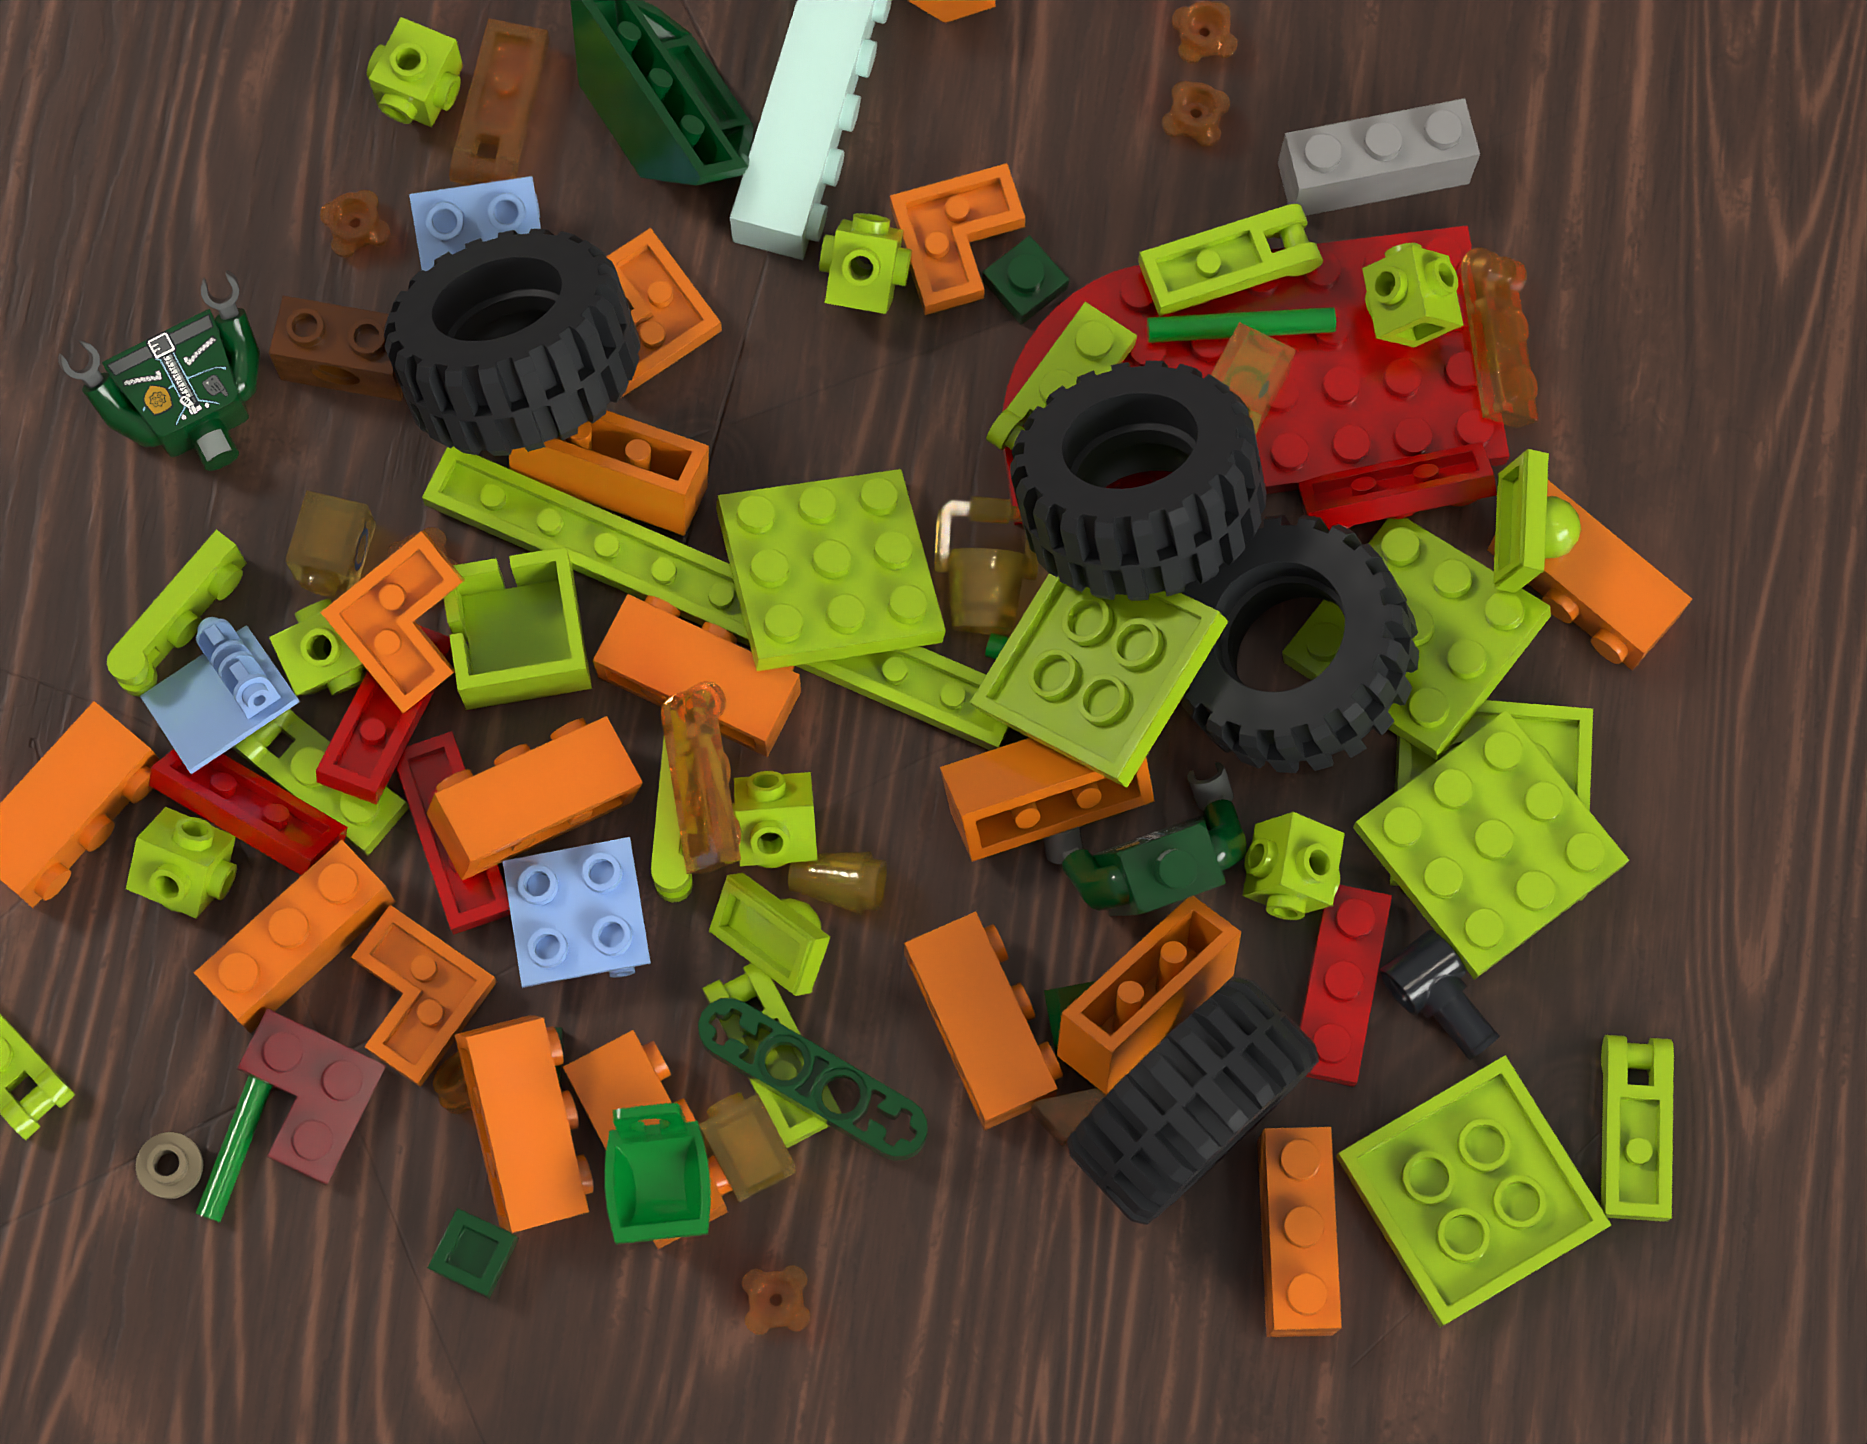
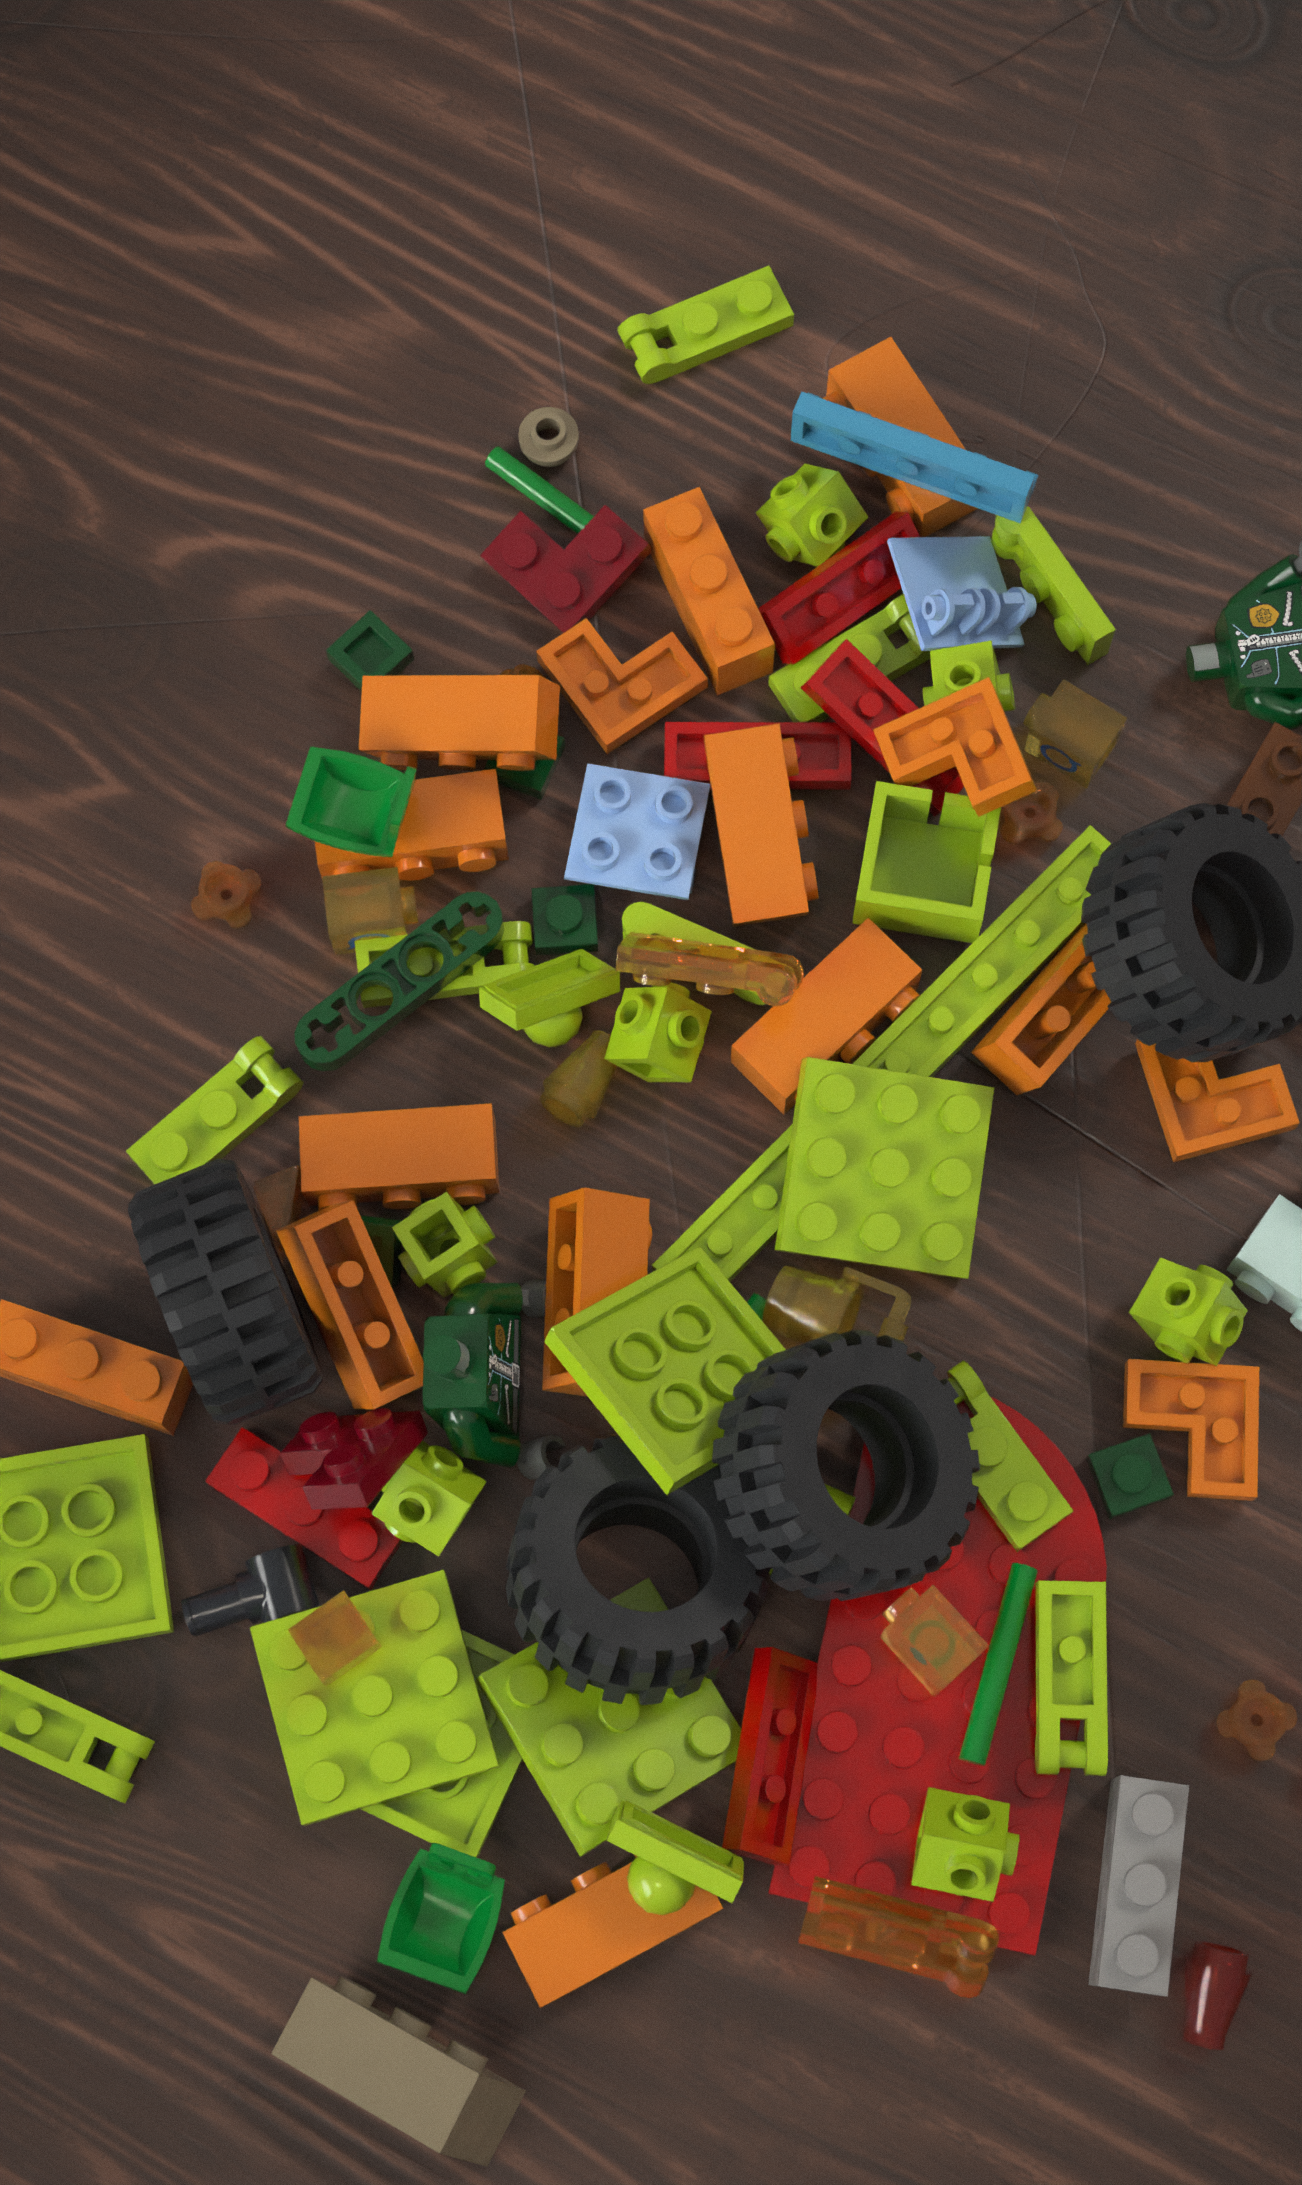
camera: 115 degrees right, 0 degrees up
(98, 772) = (912, 457): none -> dark azure hinge
(684, 959) = (564, 919): none -> dark green plate
(1008, 1219) = (216, 1115): none -> lime plate
(1080, 935) = (445, 1245): none -> lime brick
(1283, 928) = (351, 1454): none -> dark red plate
(1434, 78) = (1213, 1991): none -> clear red cone
(1463, 882) = (334, 1638): none -> clear orange slope
(1652, 716) = (442, 1917): none -> green piece
(1793, 707) = (398, 2071): none -> dark tan wedge

